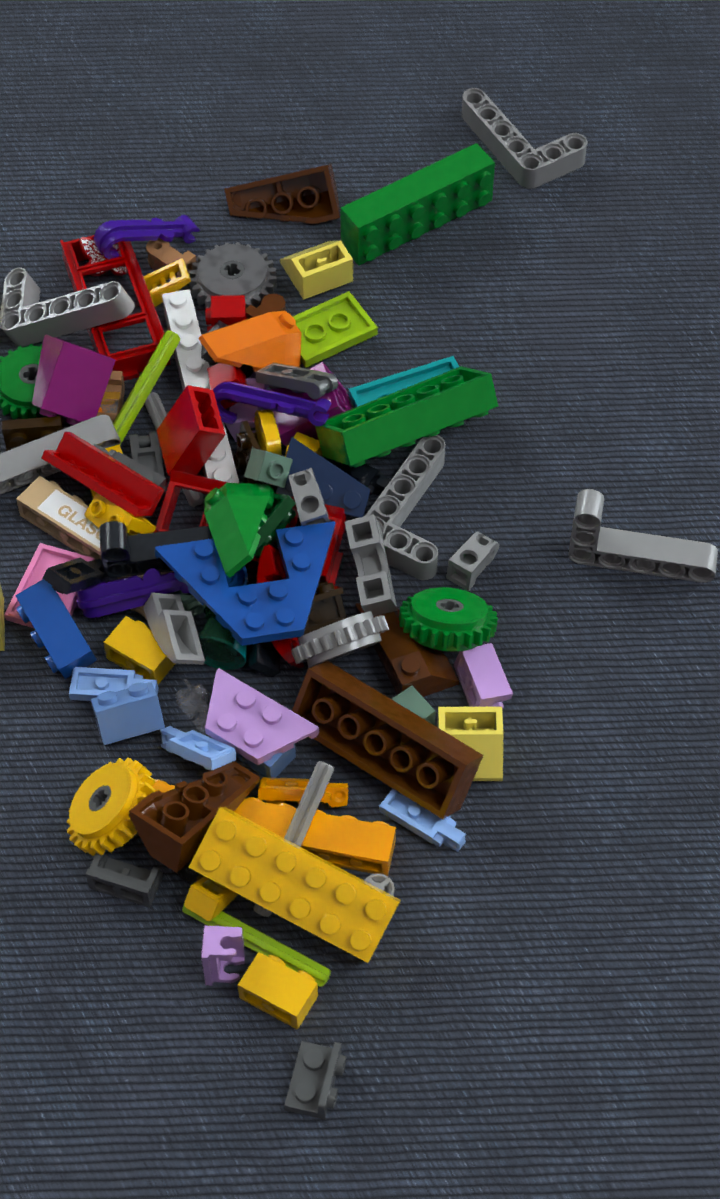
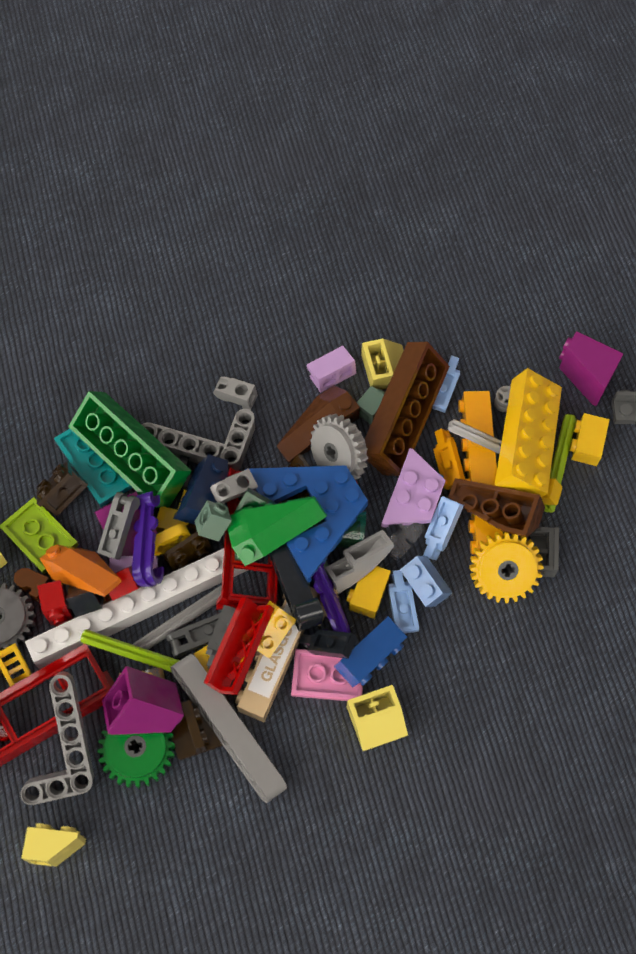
camera: 105 degrees left, 10 degrees up
(190, 431) = (182, 592): red brick -> none
(220, 948) = (585, 474): lavender hinge -> none
(372, 566) = (261, 447): light grey arch -> none
(378, 348) = (60, 488): none -> dark brown bracket
(392, 1015) = (589, 365): none -> magenta slope
(448, 619) = (297, 391): green gear -> none
(635, 550) = (206, 299): light grey beam -> none

